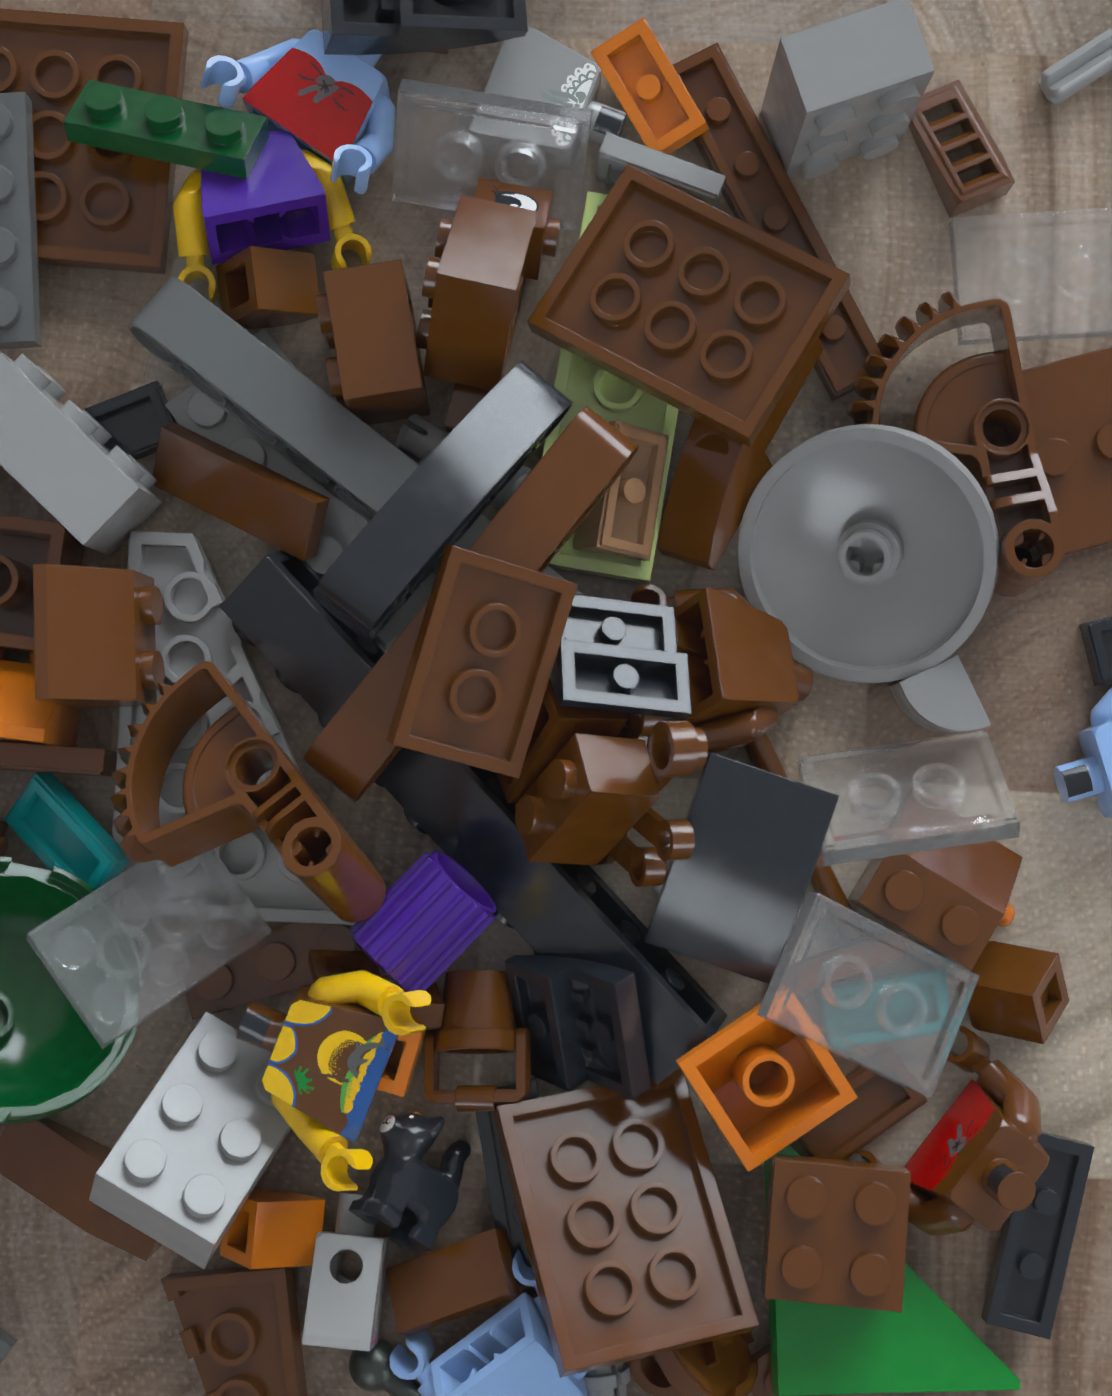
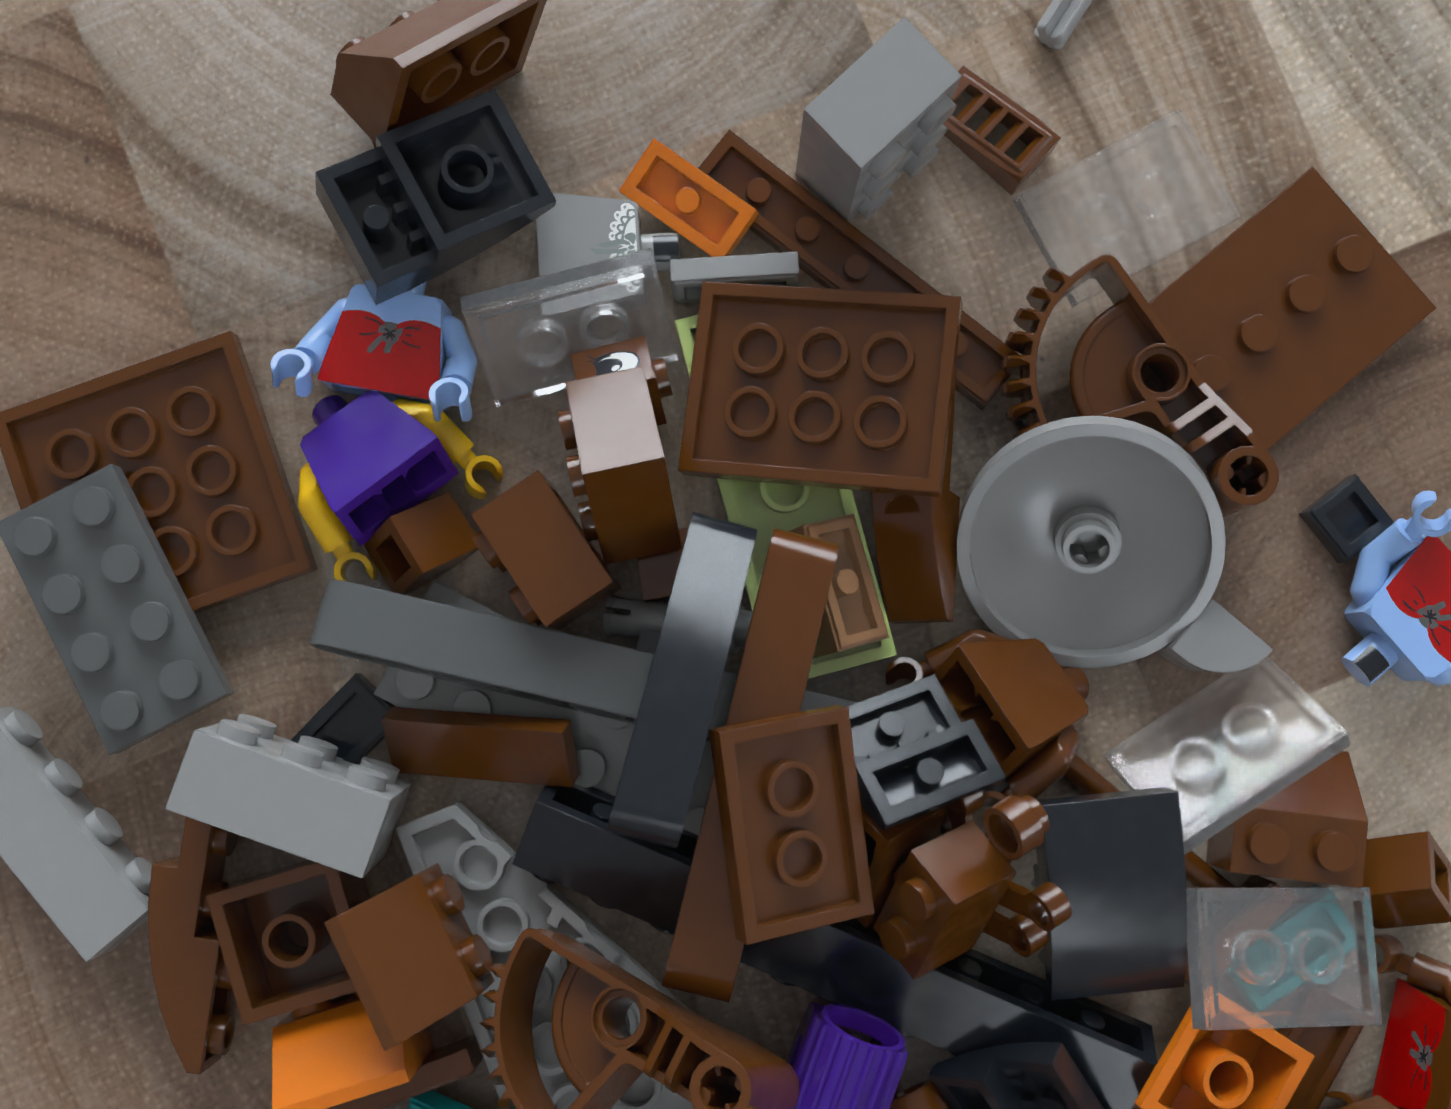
camera: 25 degrees left, 0 degrees up
(167, 129) = (260, 440): dark green plate -> none

